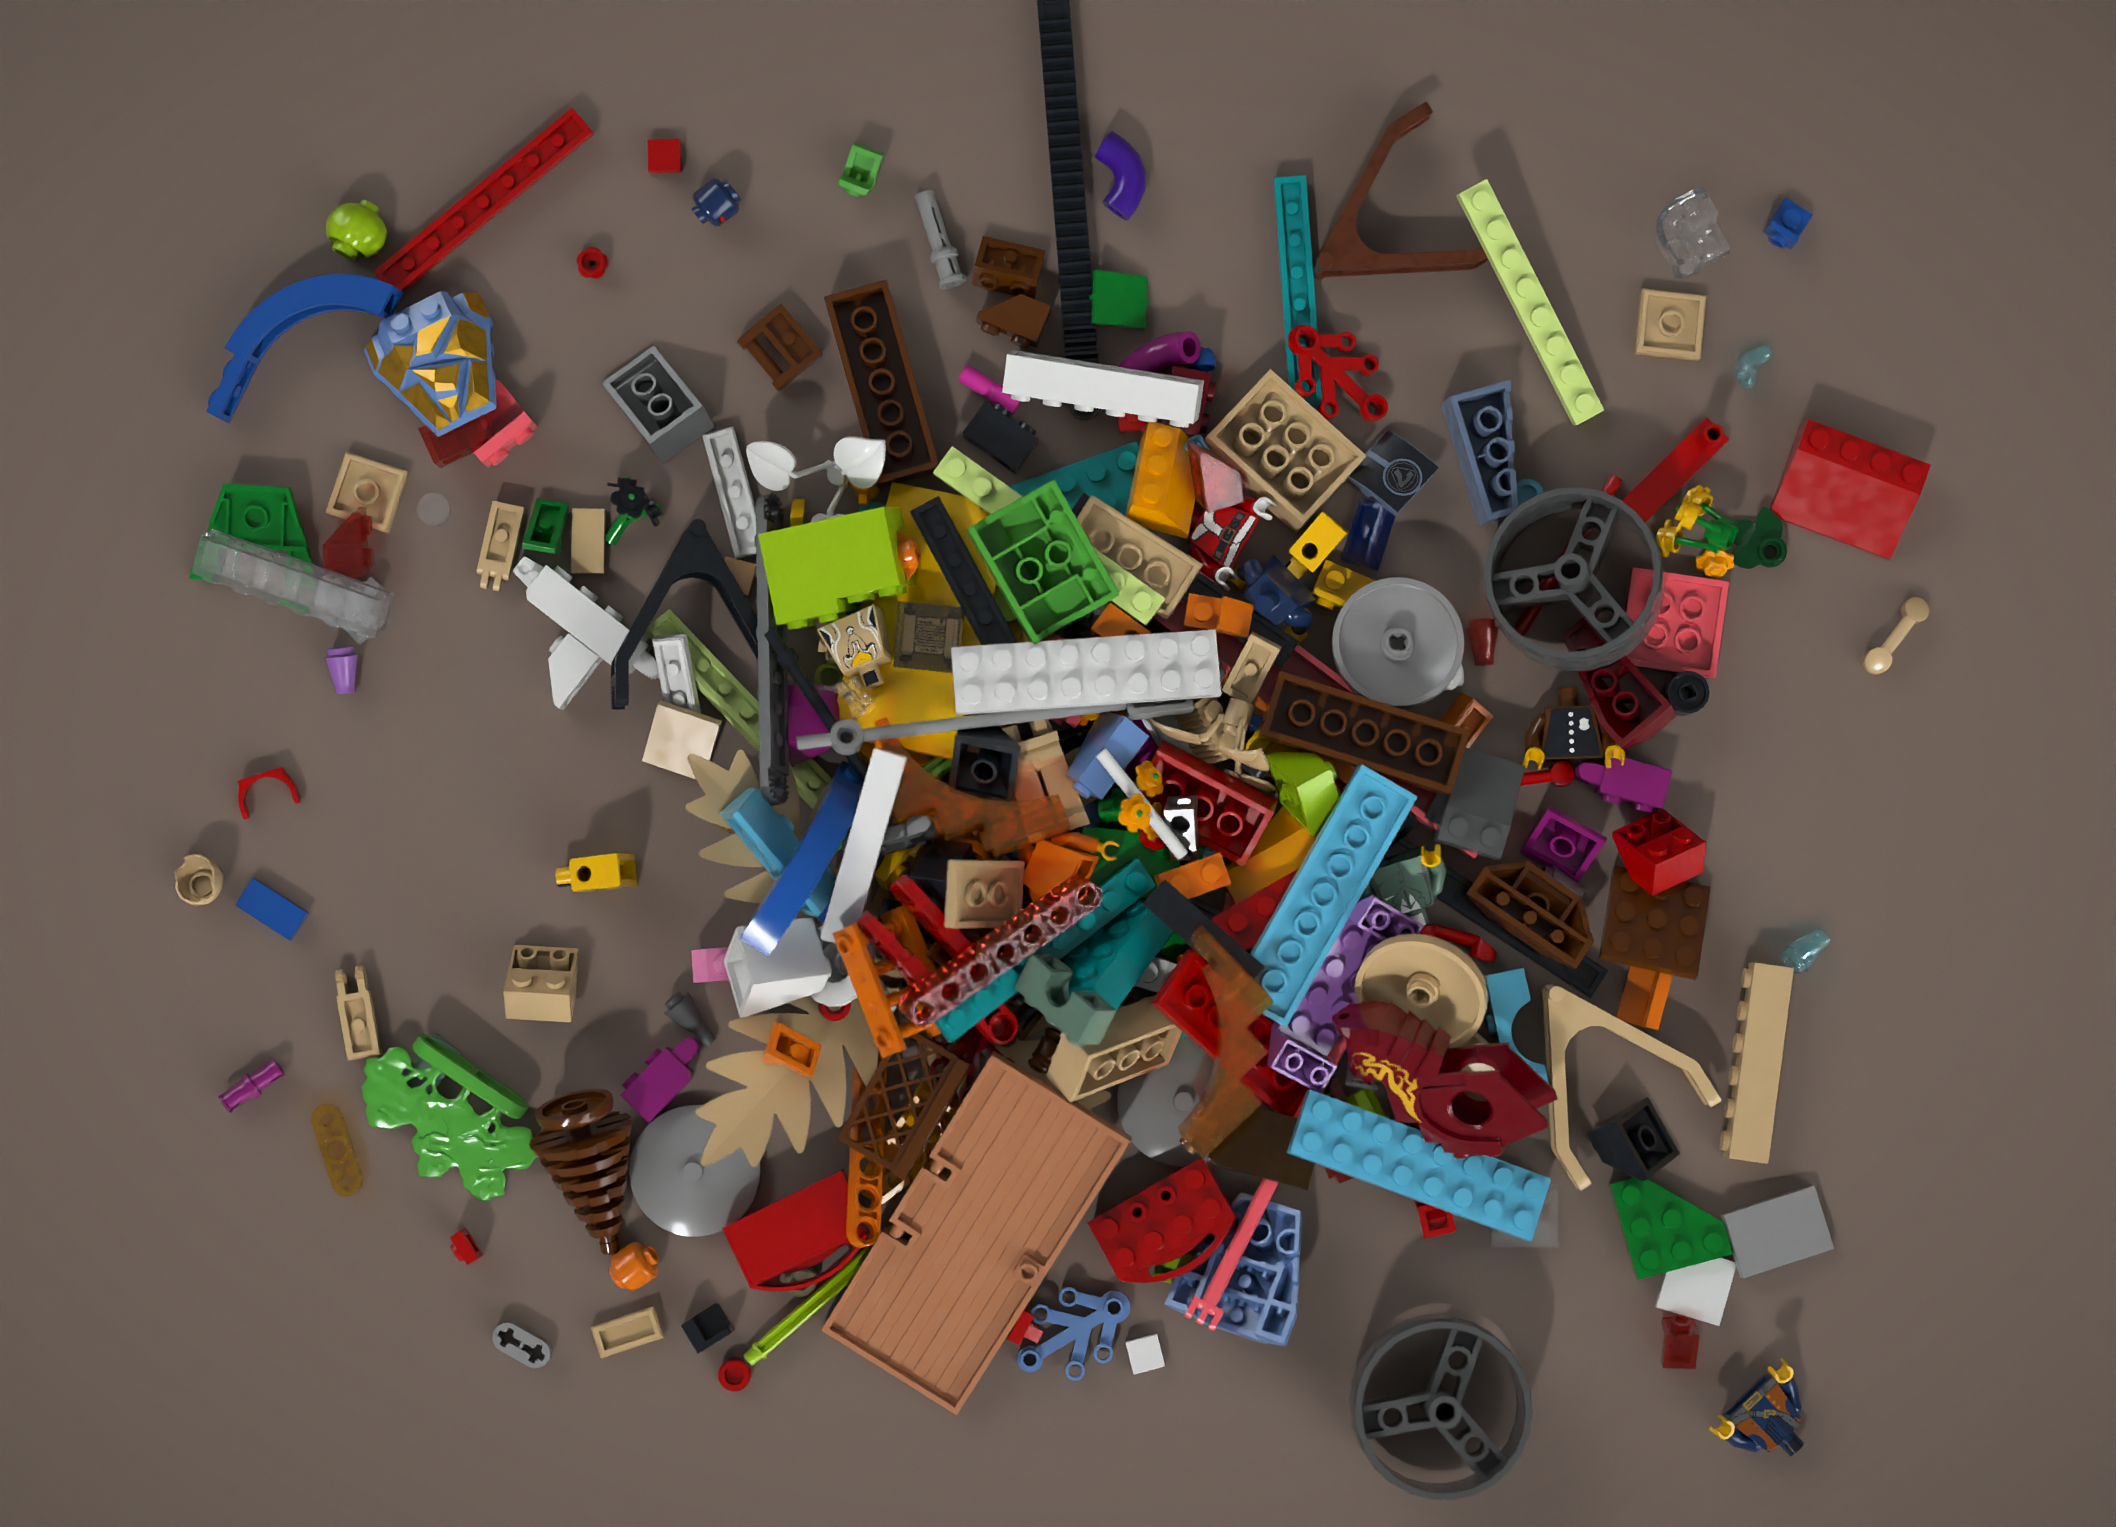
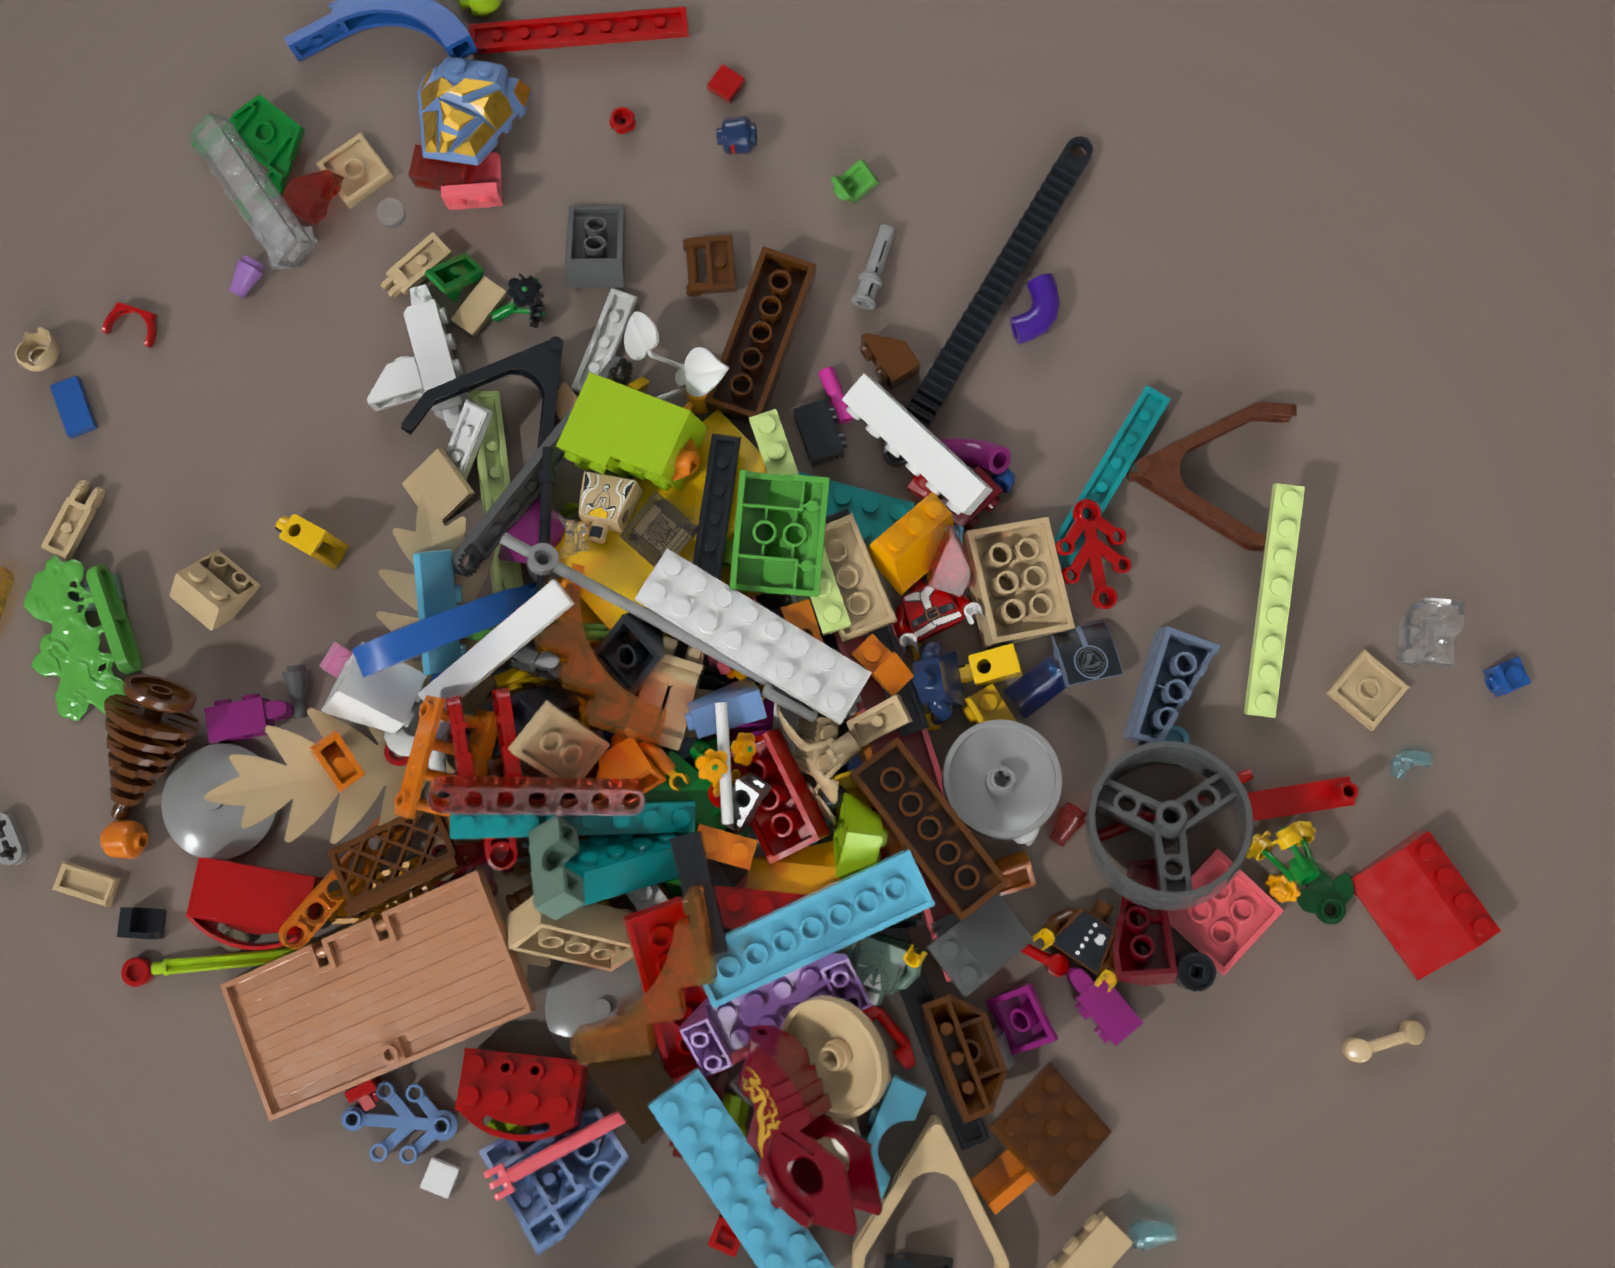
camera: 40 degrees right, 5 degrees down
(465, 1247) = (19, 739): red plate -> none
(1008, 267) = (910, 318): reddish brown bracket -> none
(1119, 299) = (973, 395): green piece -> none
(1660, 851) = (1091, 1077): red slope -> none

